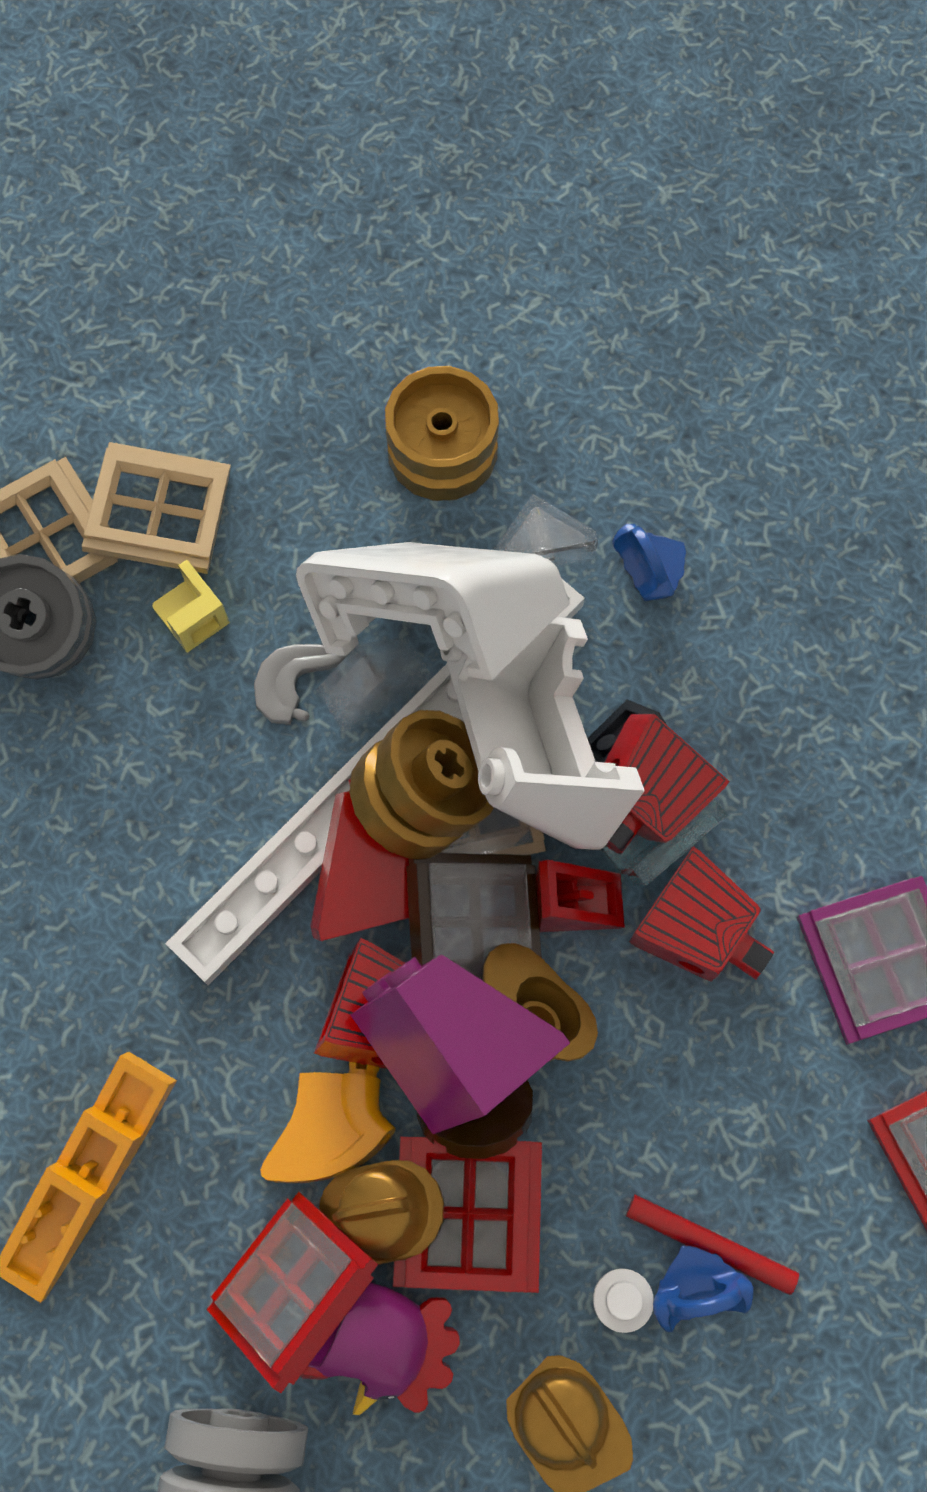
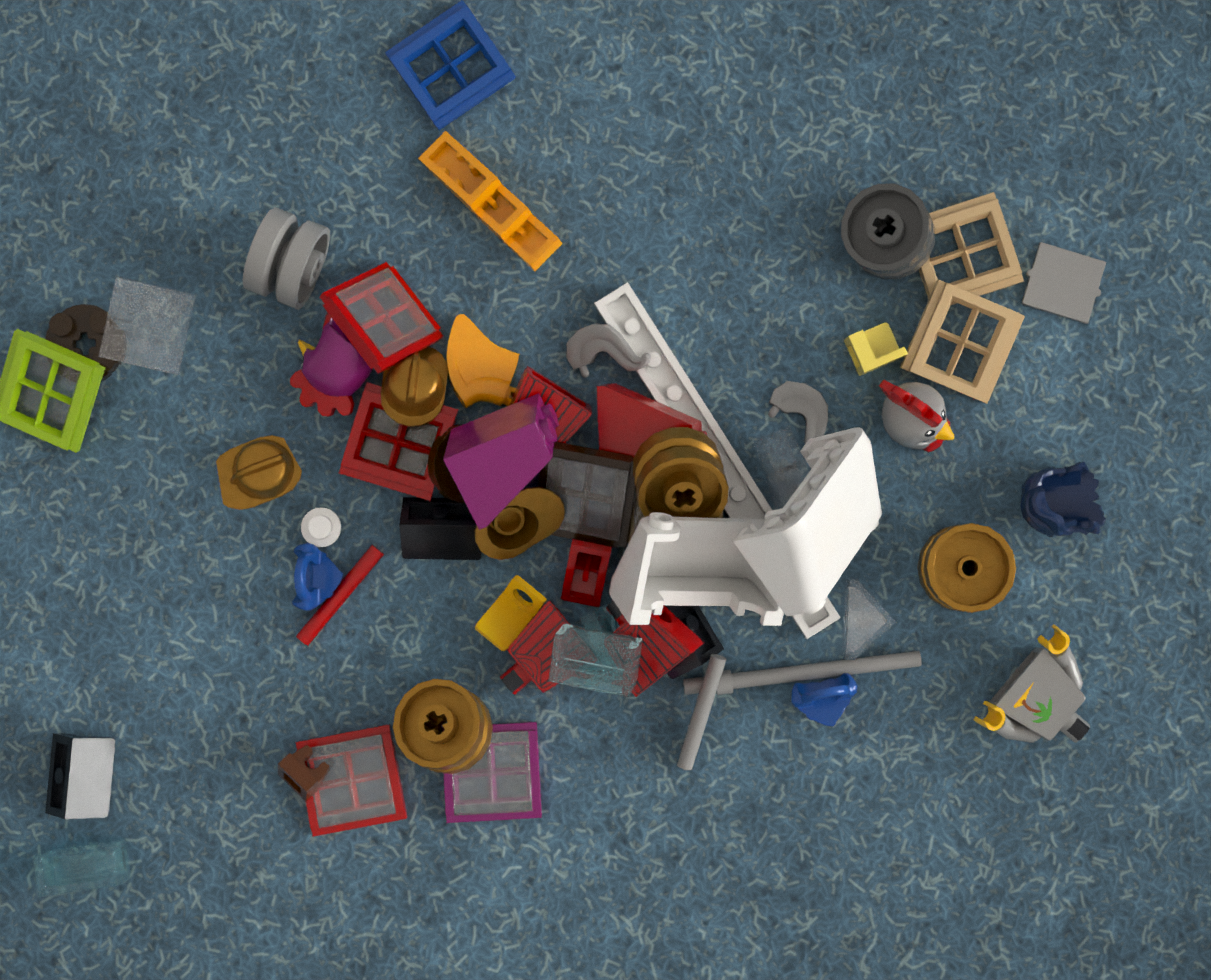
camera: 105 degrees right, 15 degrees up
(59, 416) = (1063, 283): none -> light grey piece
(252, 964) = (598, 337): none -> light grey piece
(264, 533) = (914, 415): none -> light grey piece
(332, 355) = (1062, 501): none -> dark blue hair
(570, 323) = (1040, 696): none -> light grey torso
(577, 1120) = (437, 530): none -> black panel
(666, 987) = (510, 614): none -> yellow bracket
(667, 686) = (807, 672): none -> light grey bar
(700, 838) = (595, 660): none -> clear light blue panel
(717, 703) = (701, 711): none -> light grey bar
(875, 1064) = (419, 725): none -> pearl gold wheel

